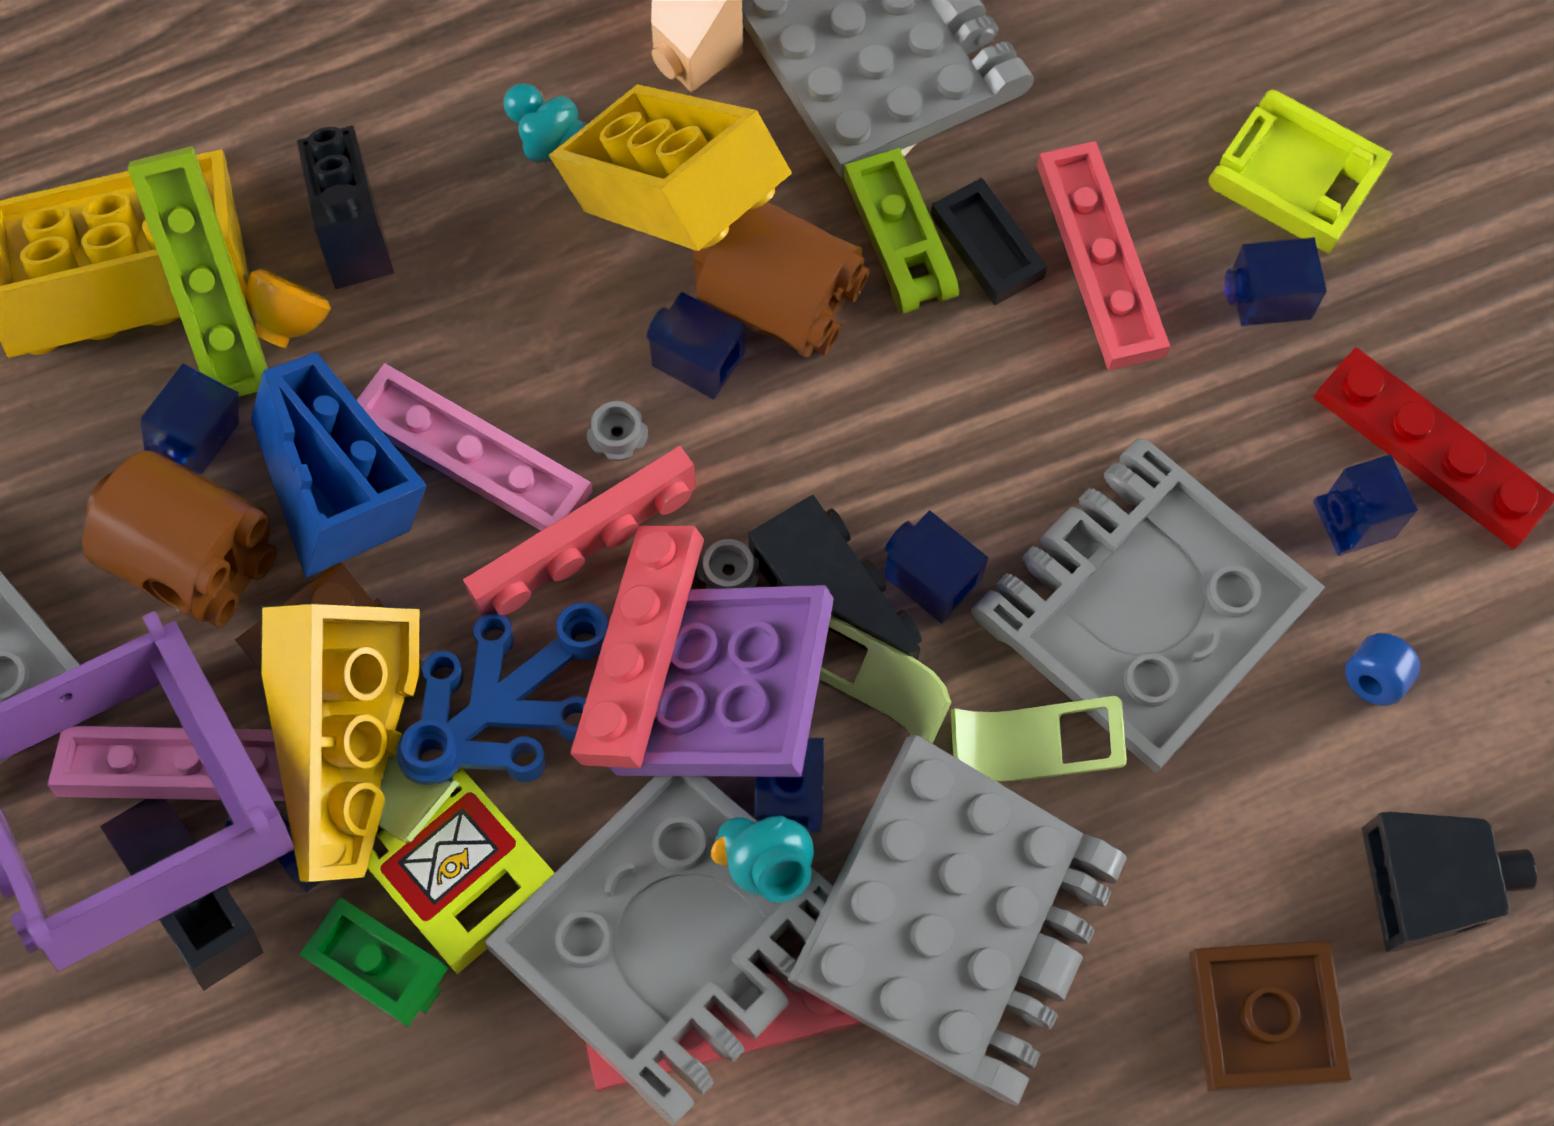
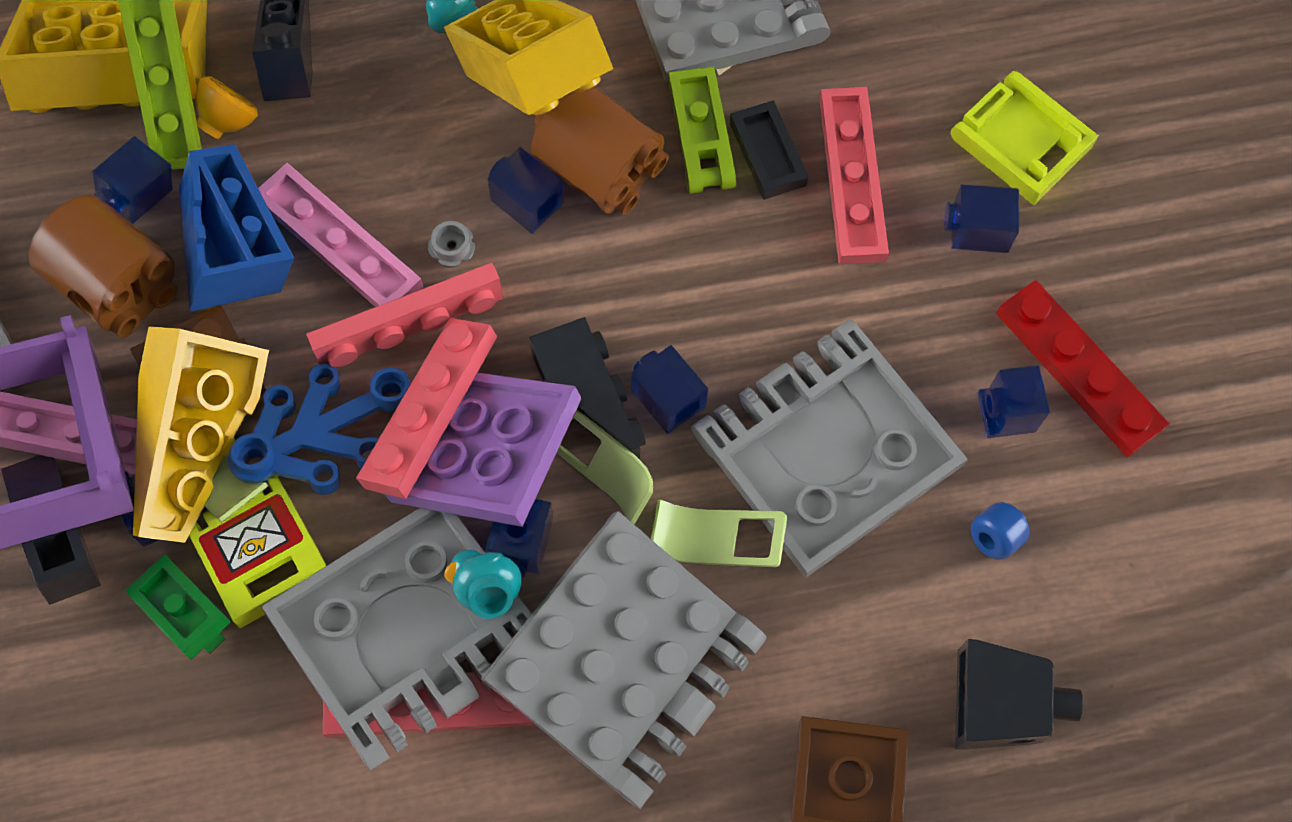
camera: 10 degrees right, 0 degrees up
(728, 553) = (512, 351): light grey plate -> none

